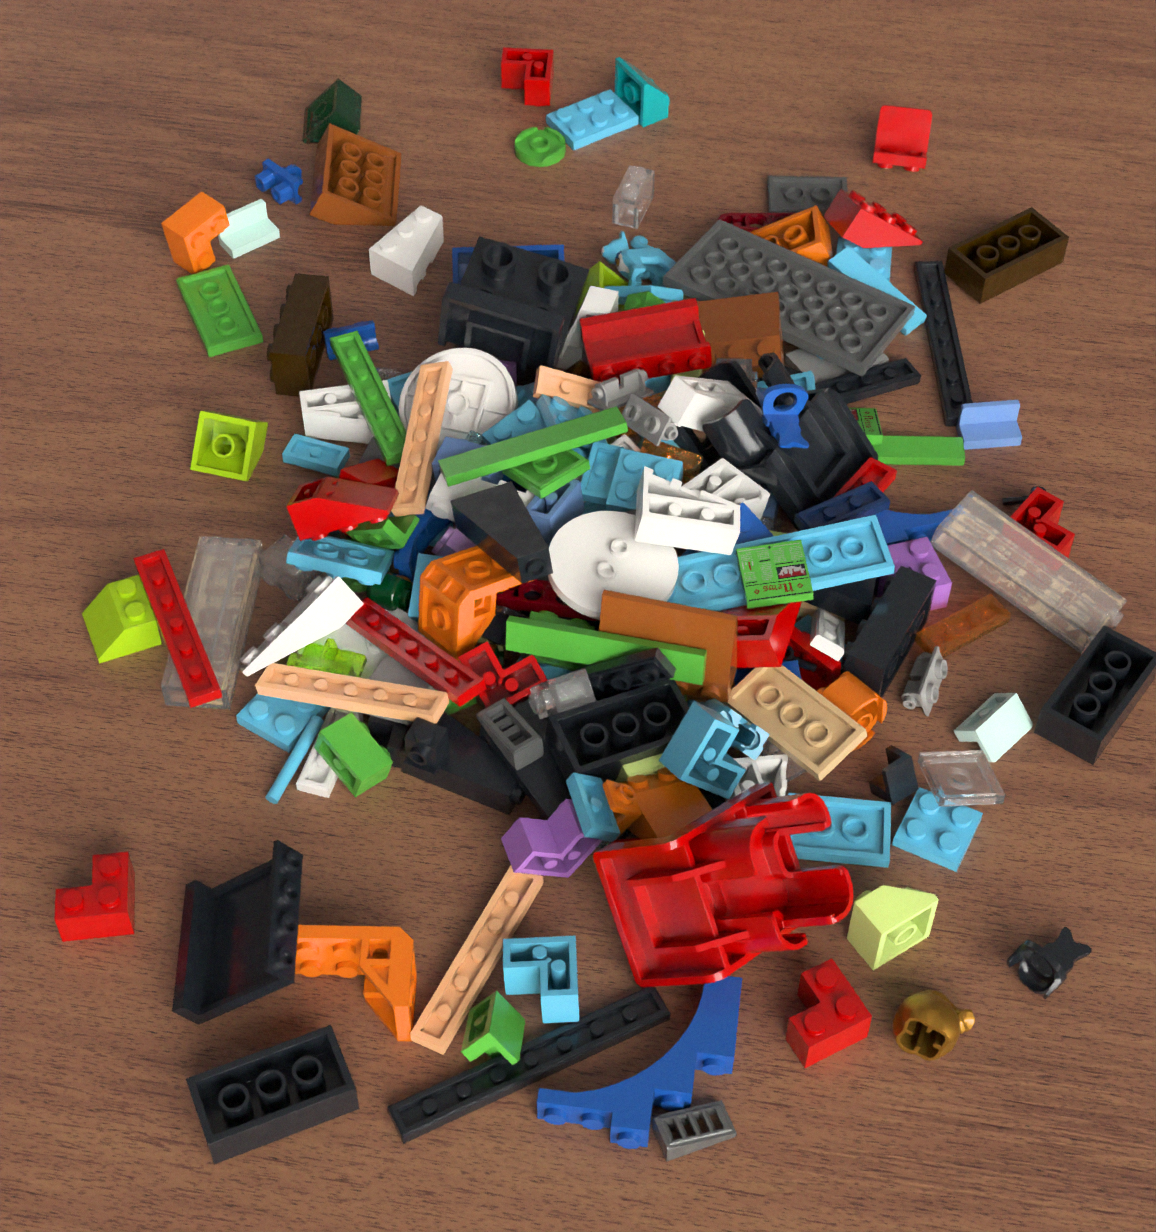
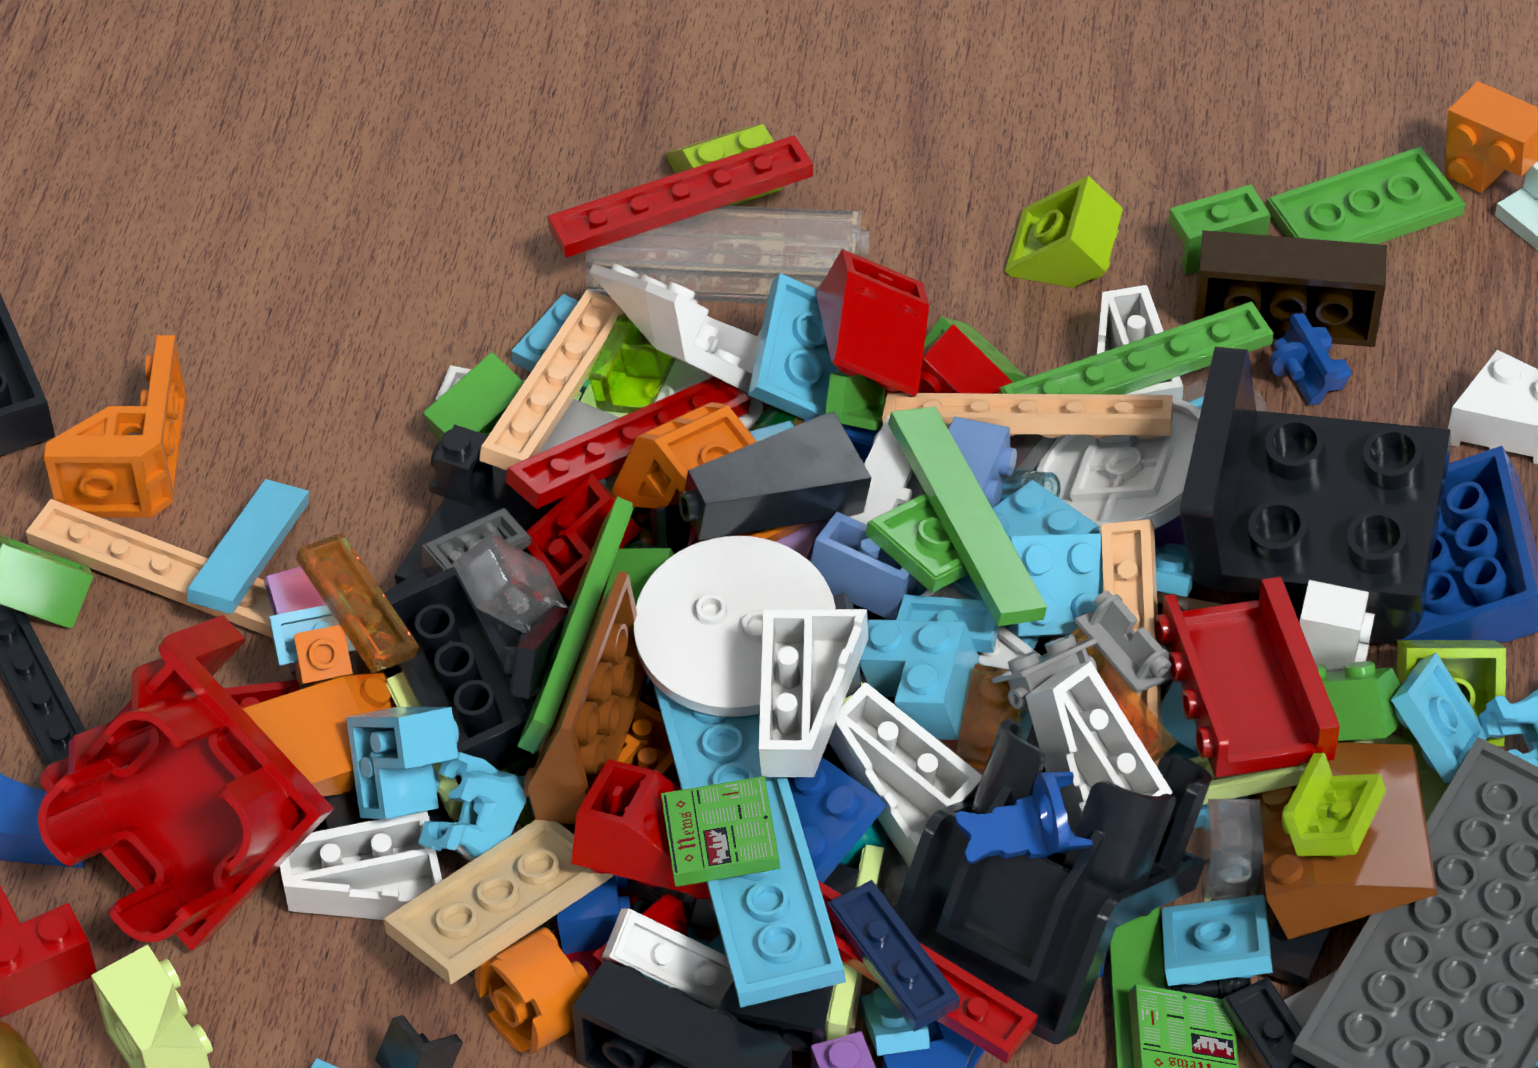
camera: 90 degrees right, 0 degrees up
(99, 908) = (276, 198): red brick -> none
(237, 364) = (1229, 211): none -> bright green panel
(238, 938) = (185, 301): black panel -> none
(294, 759) = (473, 356): medium azure bar -> none
(316, 455) = (1054, 335): medium azure plate -> none
(469, 894) = (248, 546): none -> medium azure tile
(544, 968) = (108, 635): medium azure brick -> none
(589, 768) = (357, 602): none -> clear orange plate
(736, 319) = (1331, 812): none -> lime bracket
(856, 834) = (334, 988): medium azure plate -> none

